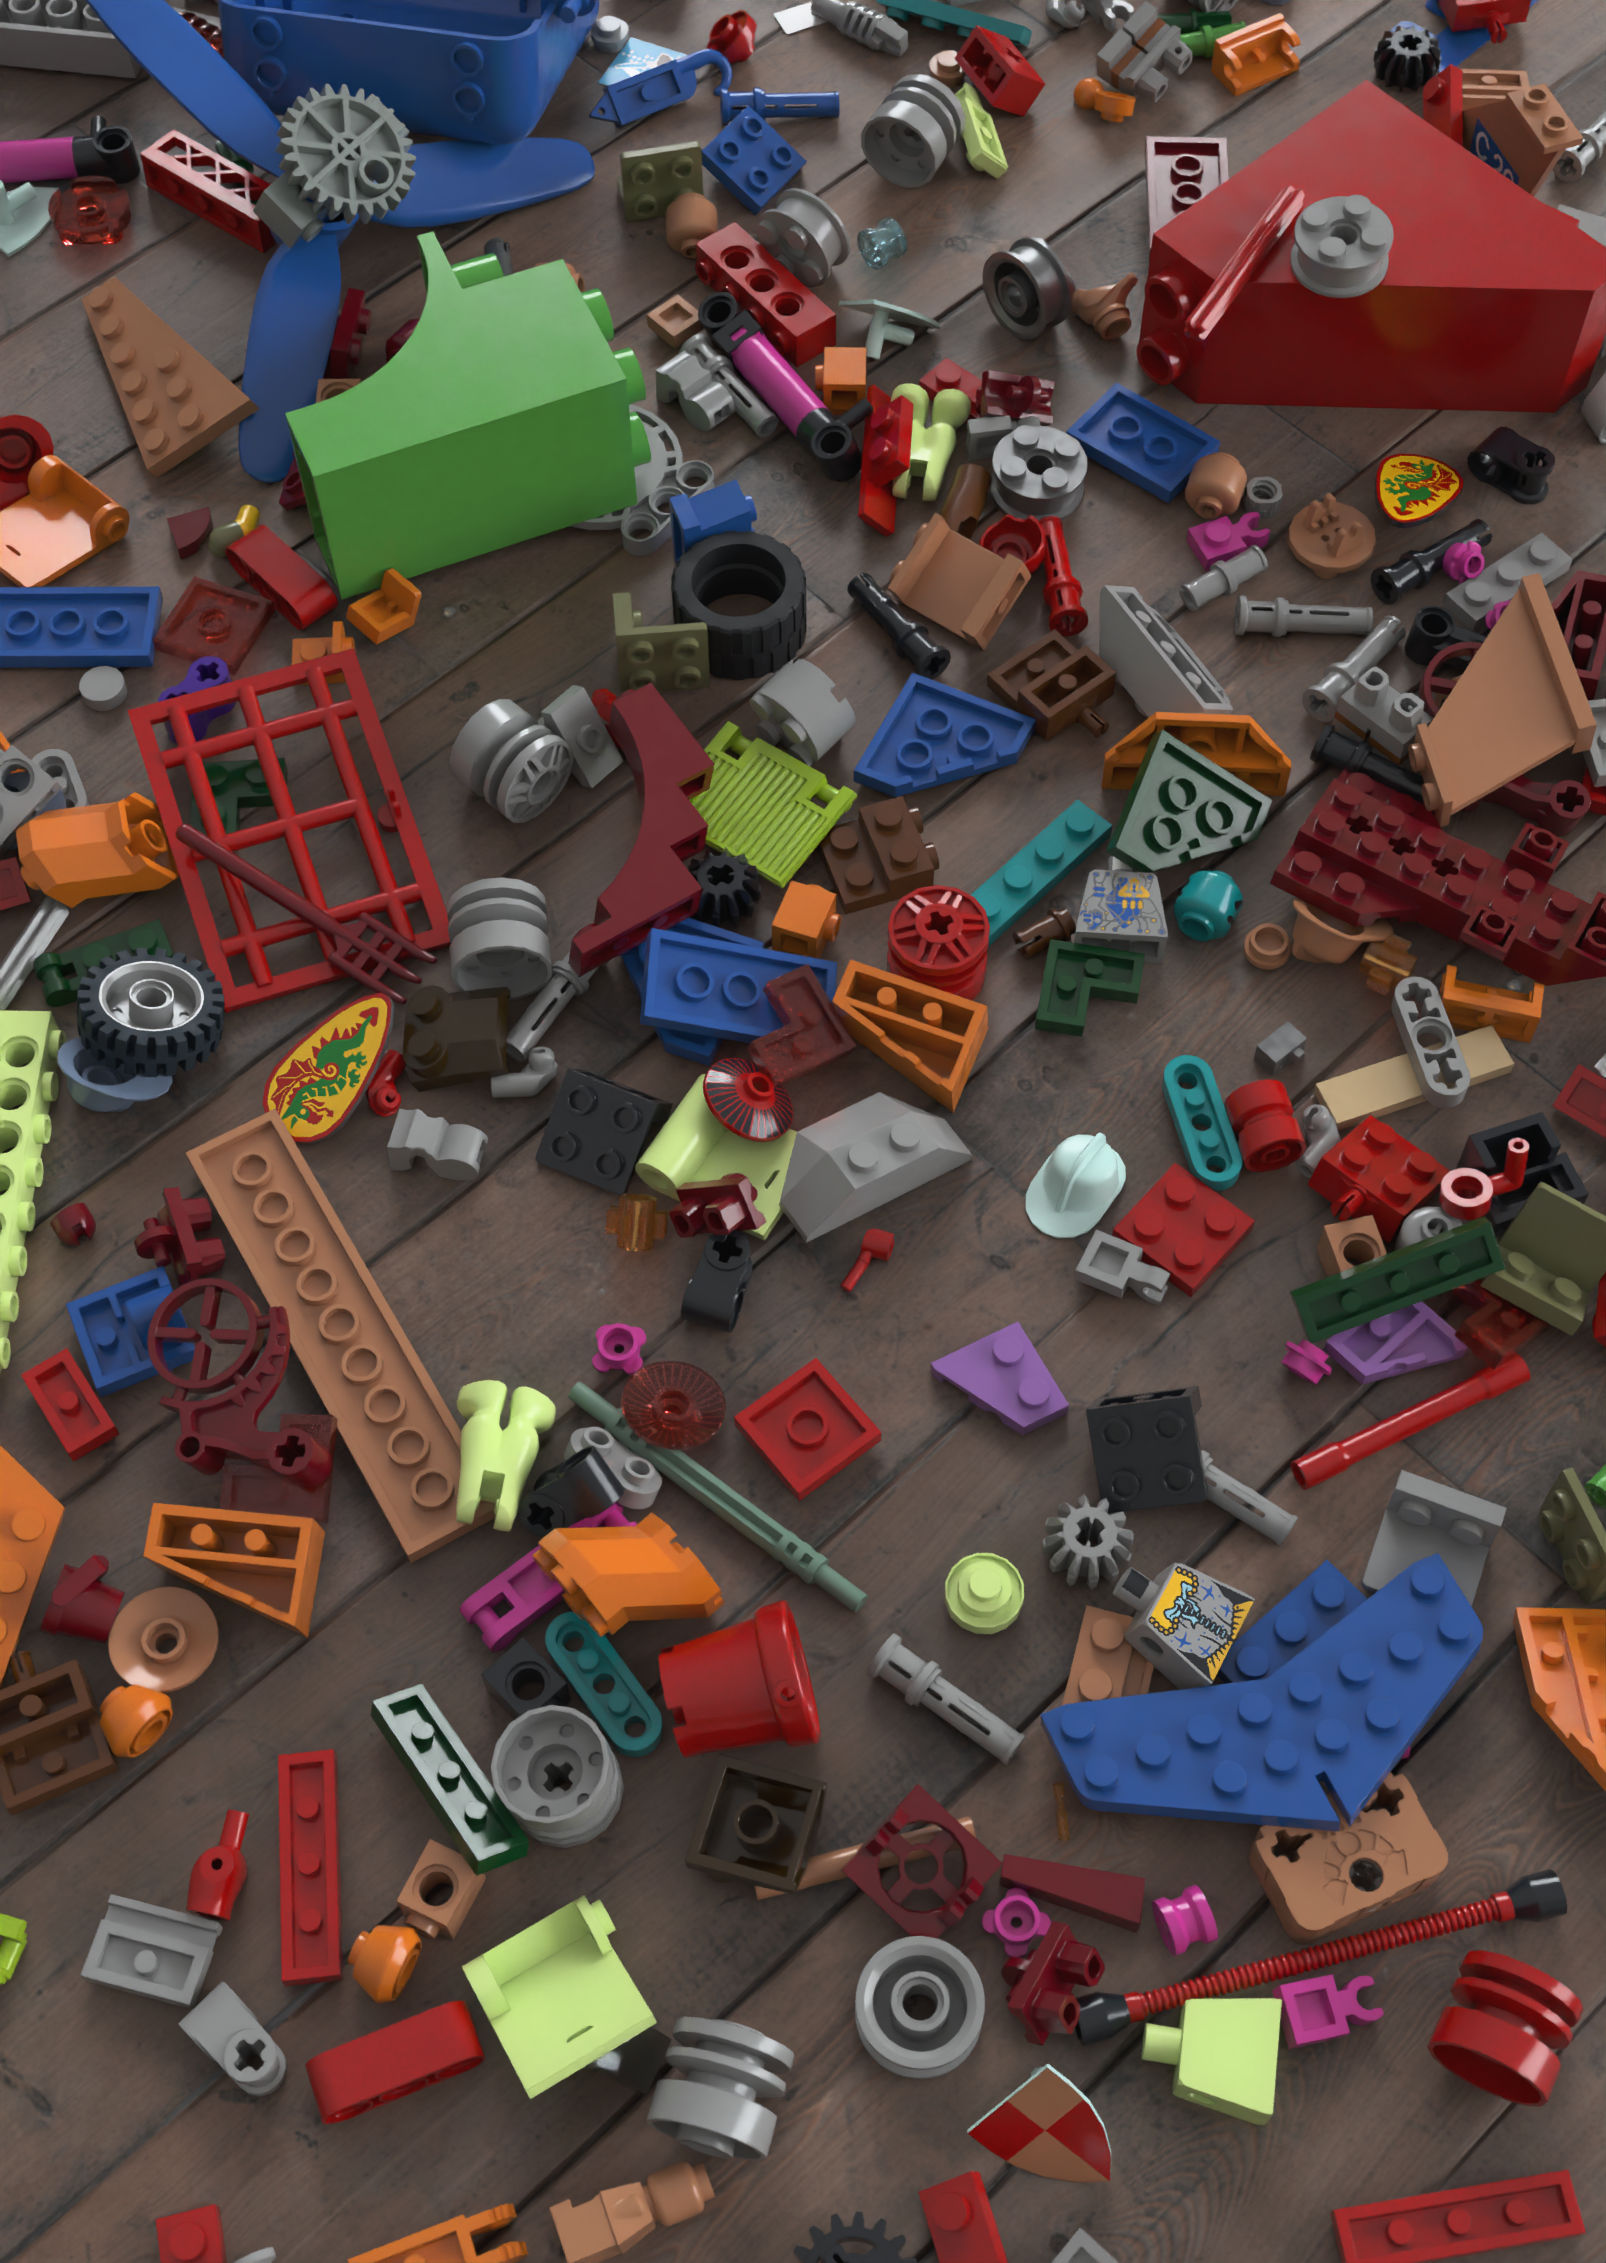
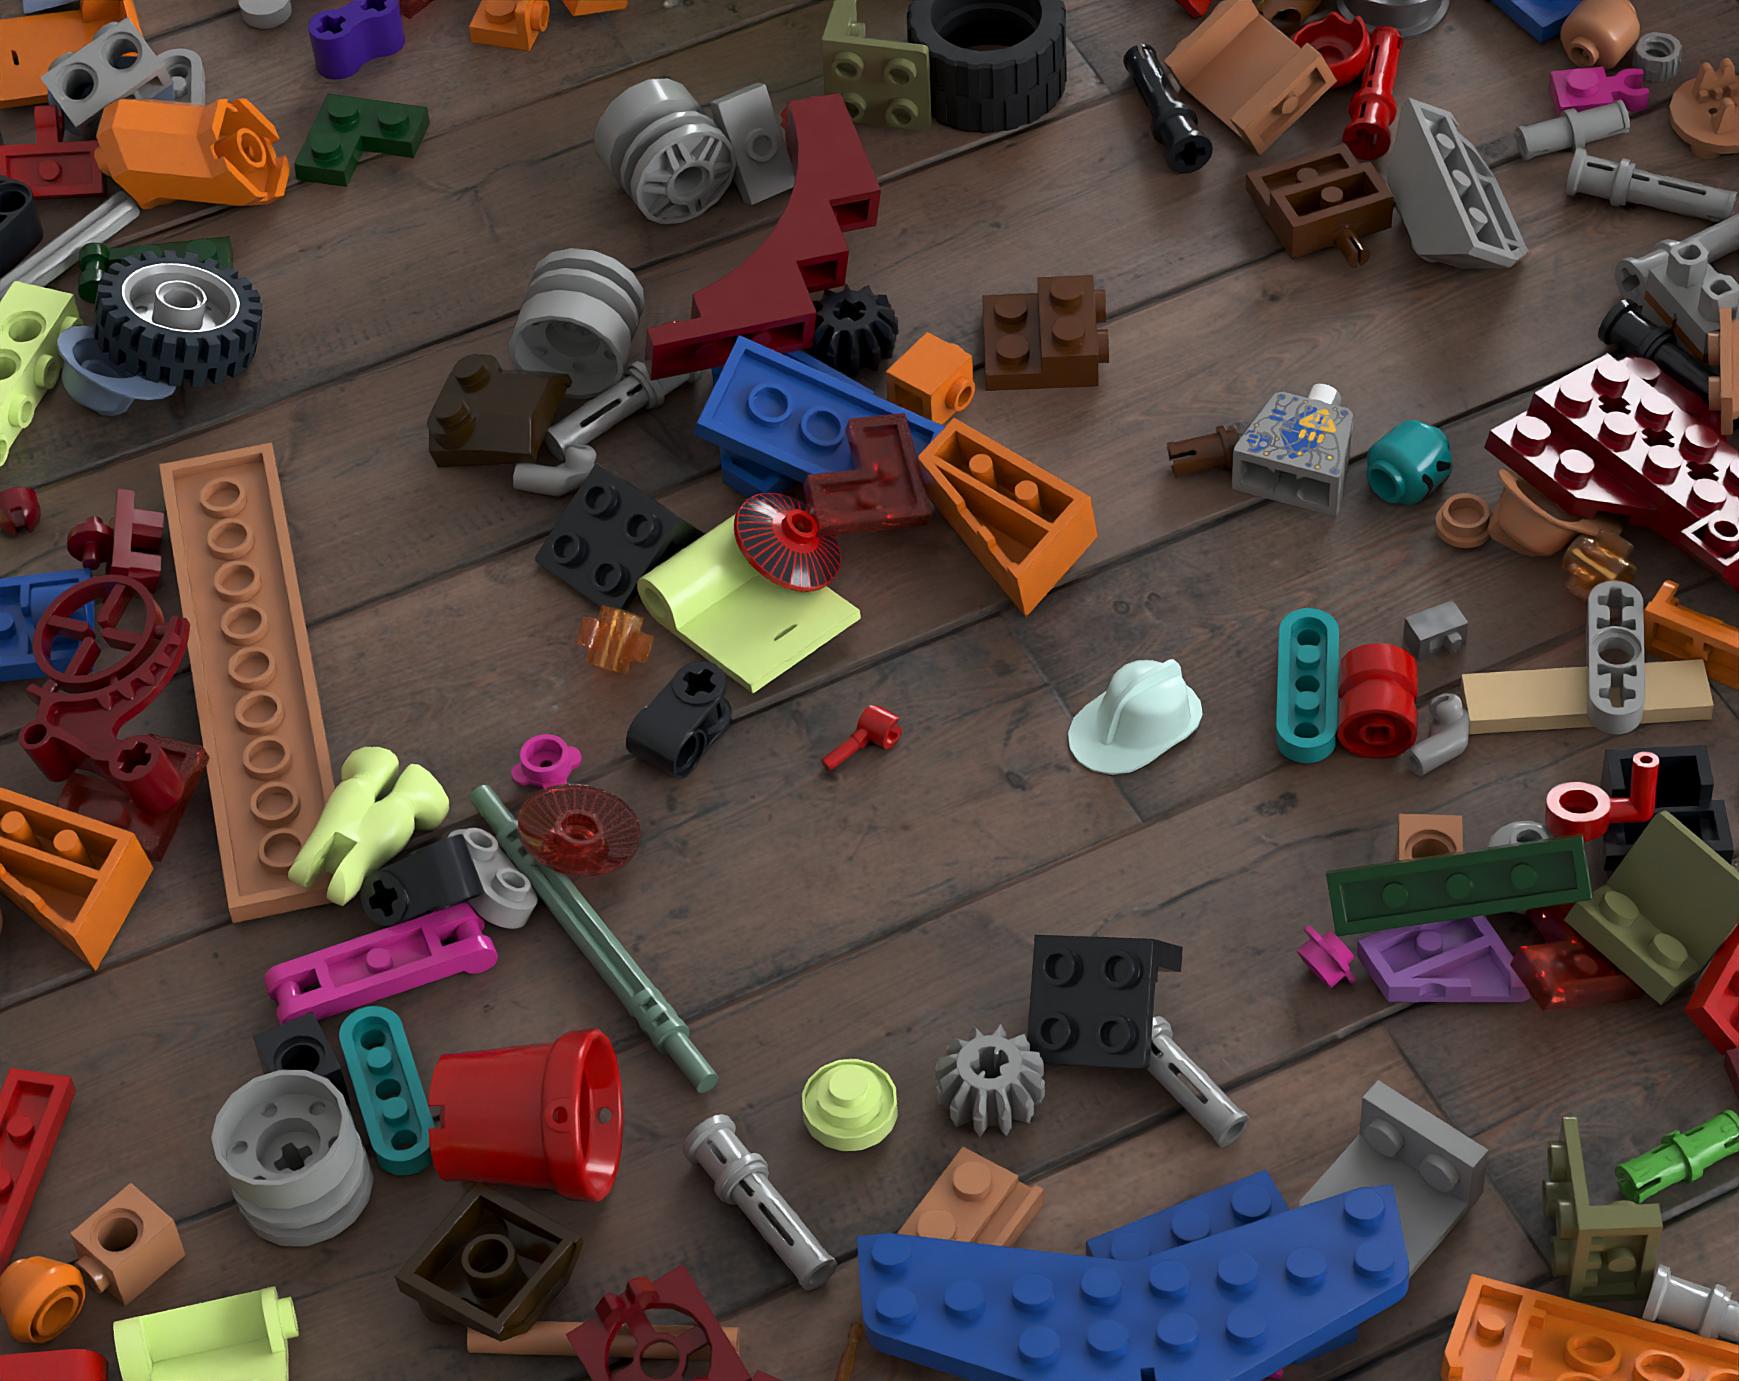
camera: 20 degrees right, 10 degrees down
(330, 1069) = (346, 416): shield -> none
(346, 935) = (416, 290): dark red piece -> none
(382, 1092) = (397, 448): red arm -> none
(391, 816) = (519, 189): red door -> none
(448, 1149) = (440, 524): light grey leg -> none
(449, 1779) = (177, 1133): plate -> none
(627, 1574) = (449, 972): orange brick -> none
(716, 1207) = (710, 634): dark red hips -> none
(765, 805) = (934, 255): lime window -> none
(801, 711) = (1011, 167): light grey brick -> none
(807, 1429) = (720, 892): red plate -> none
(864, 1161) = (897, 636): light grey wedge -> none
(939, 940) = (1071, 425): red wheel -> none
(940, 737) = (1166, 228): blue plate -> none
(1006, 1378) = (969, 897): medium lavender wing -> none
(1040, 866) = (1218, 390): teal plate -> none
(1083, 971) = (1227, 500): dark green plate -> none
(1116, 1264) = (1145, 807): light grey plate -> none
(1183, 1621) = (1062, 1180): torso -> none
(1184, 809) = (1415, 353): plate -> none
(1184, 1228) = (1242, 793): red plate -> none
(1226, 740) = (1454, 301): orange wedge -> none
(1340, 1455) = (1534, 1035): red piece -> none
(1377, 1176) = (1486, 778): red plate -> none

